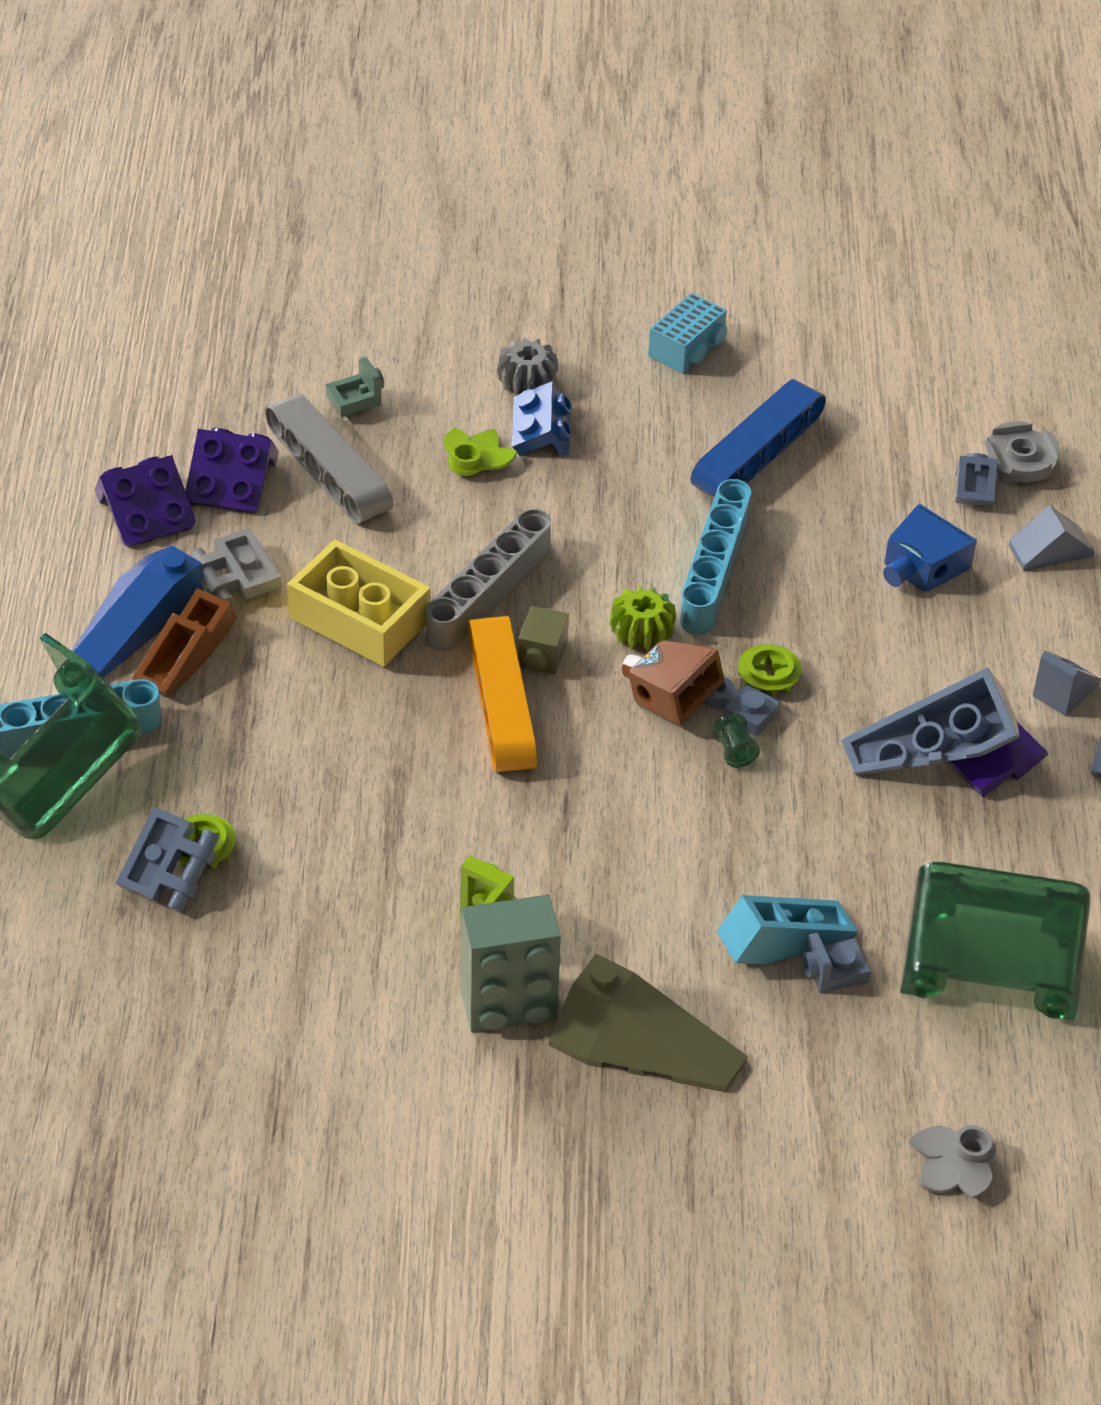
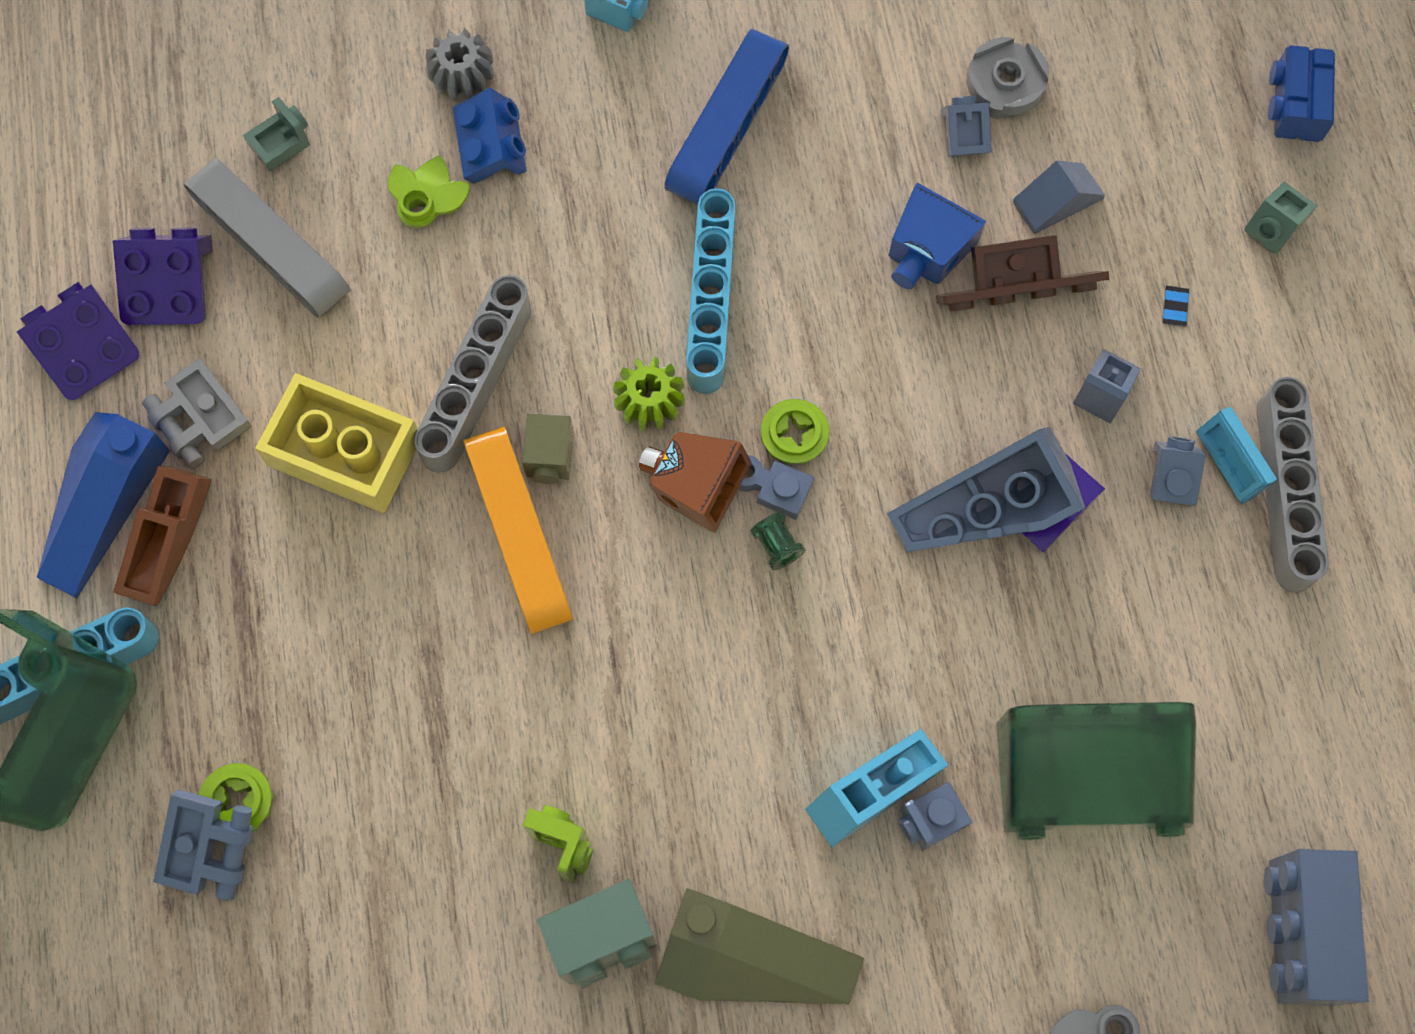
camera: 10 degrees left, 25 degrees up
(1000, 585) = (1018, 268): none -> reddish brown bracket

